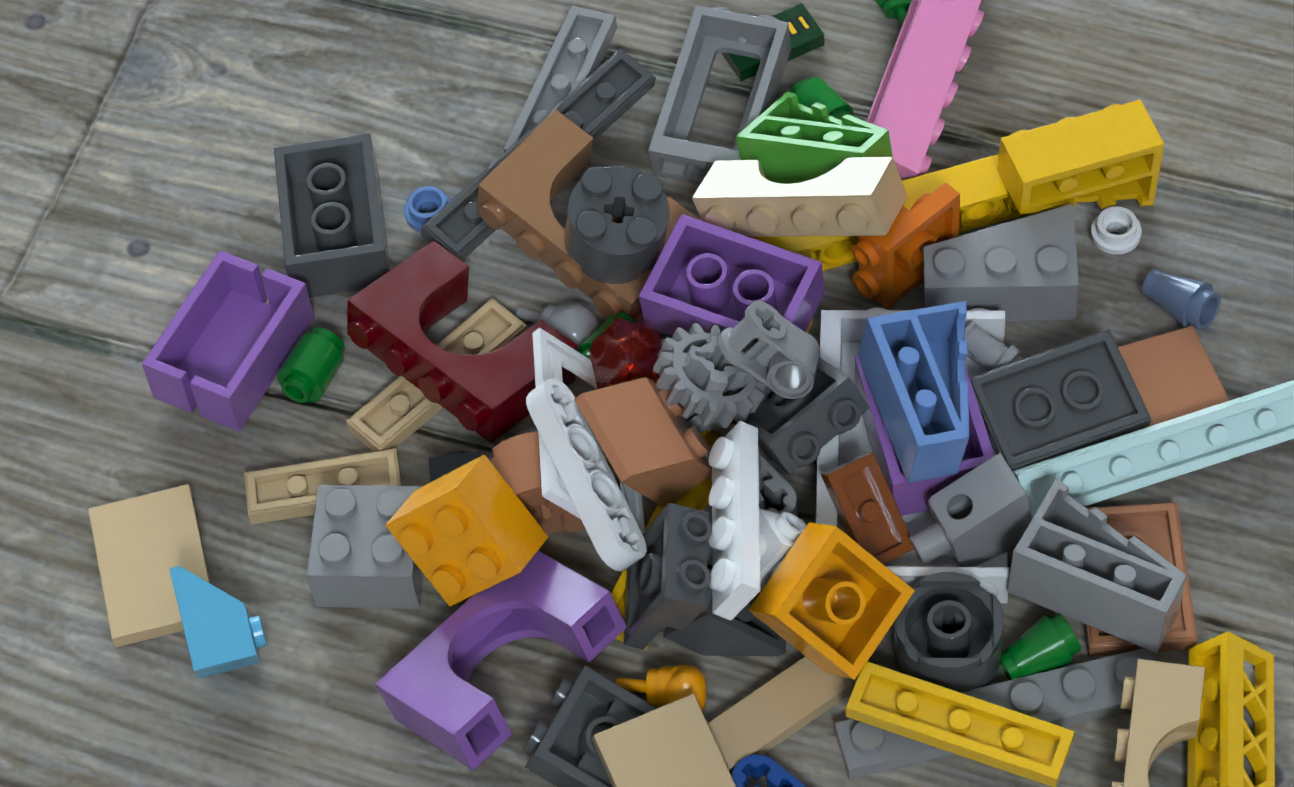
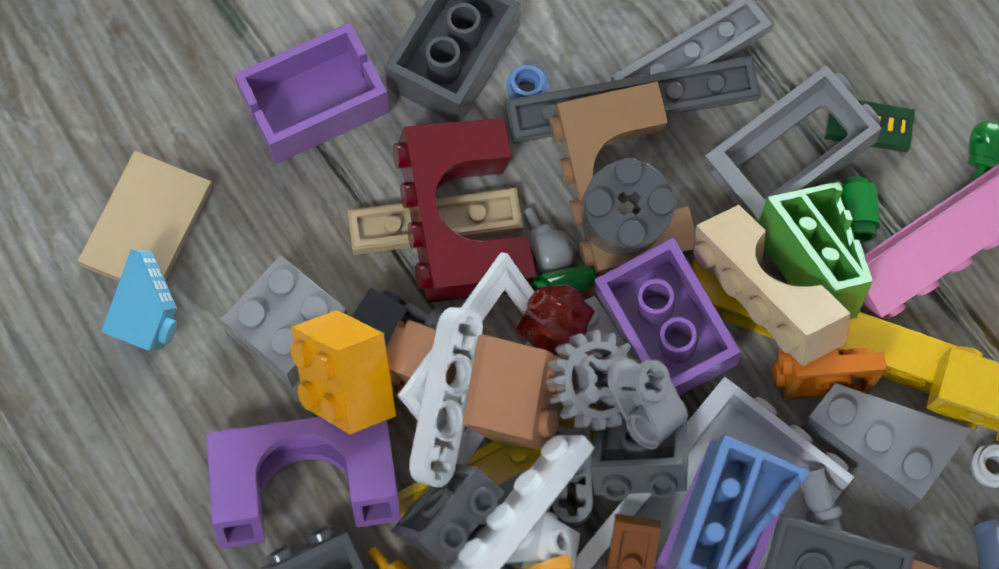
camera: 30 degrees right, 15 degrees up
(293, 489) = (306, 249): tan tile -> none
(311, 365) = (356, 150): green brick -> none

